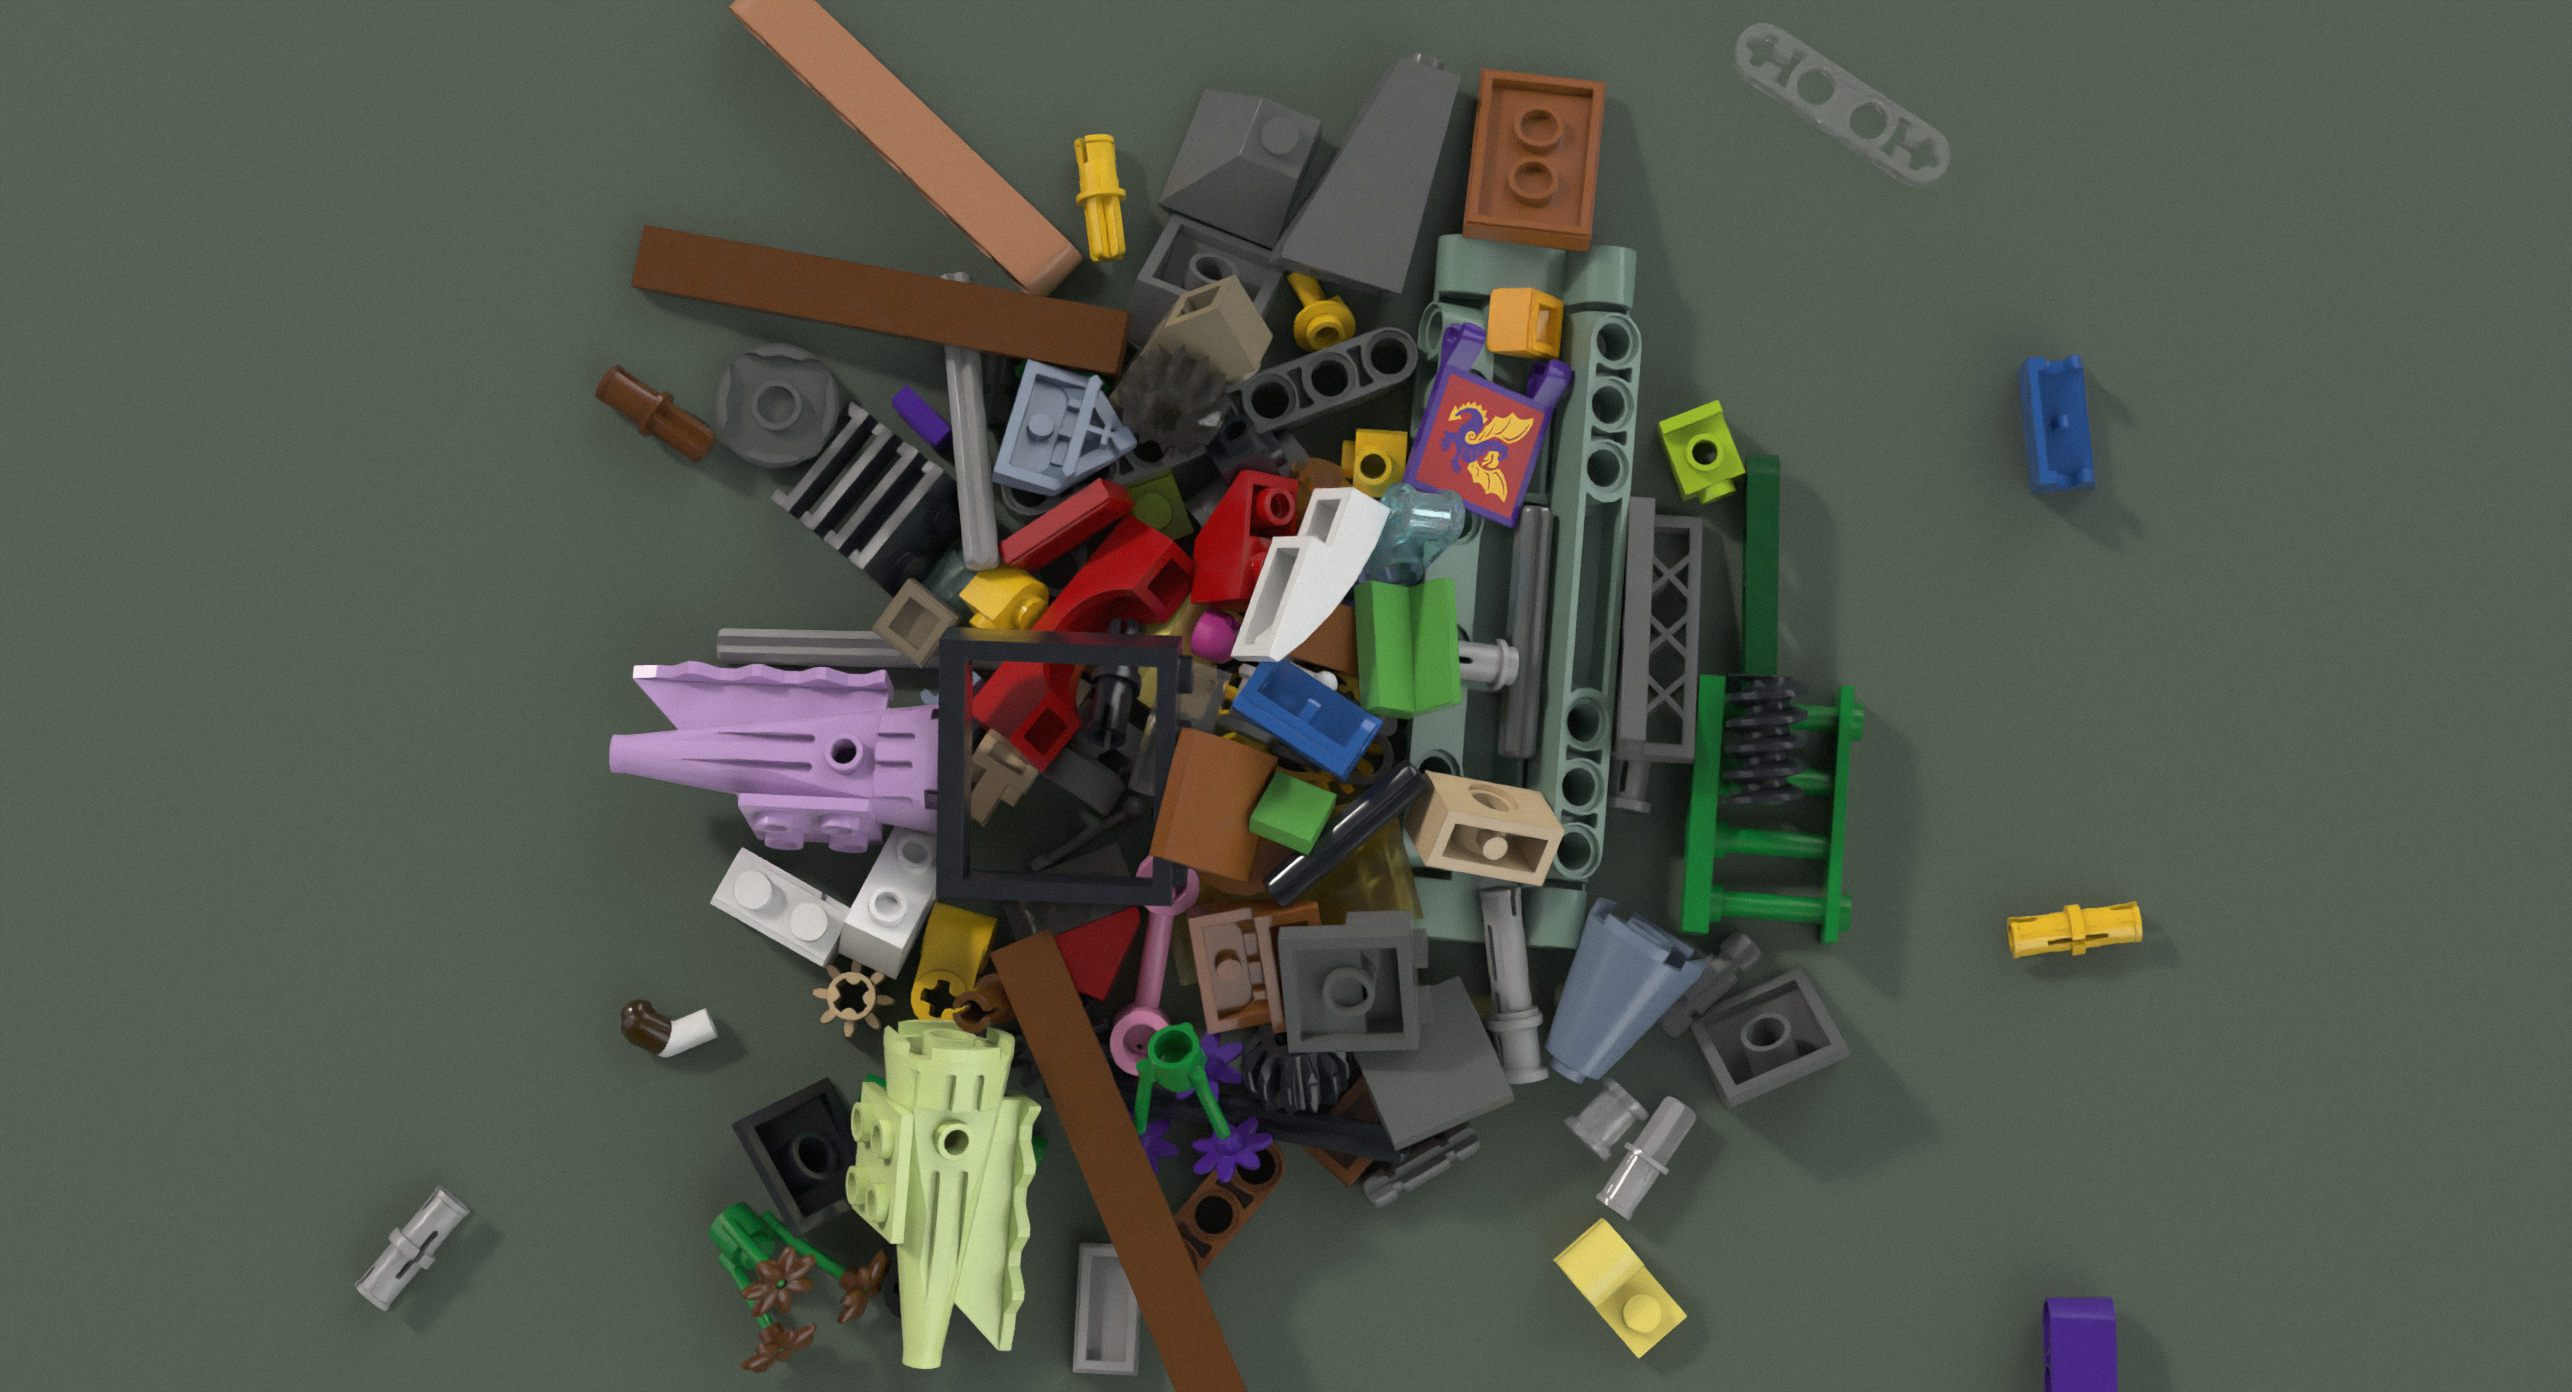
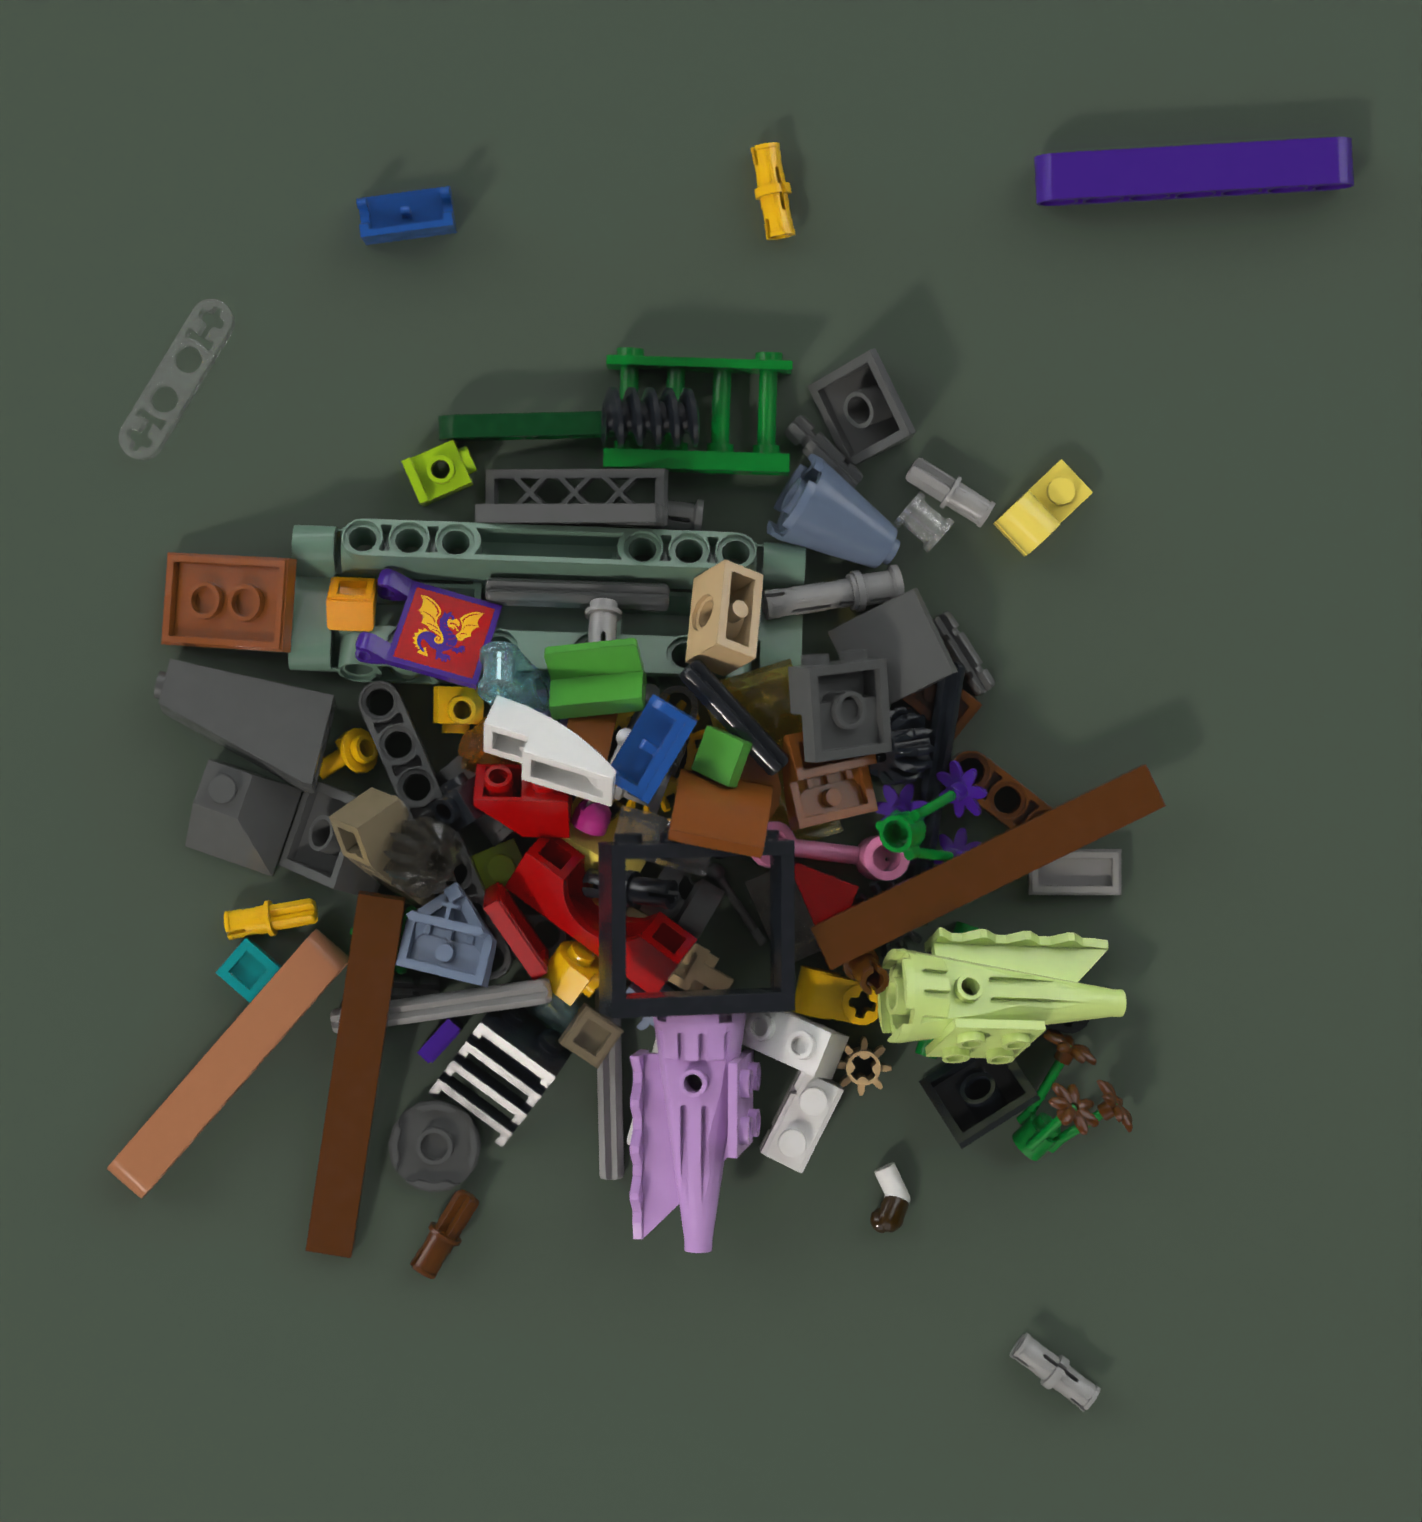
camera: 95 degrees left, 5 degrees up
(1033, 164) = (248, 969): none -> teal plate

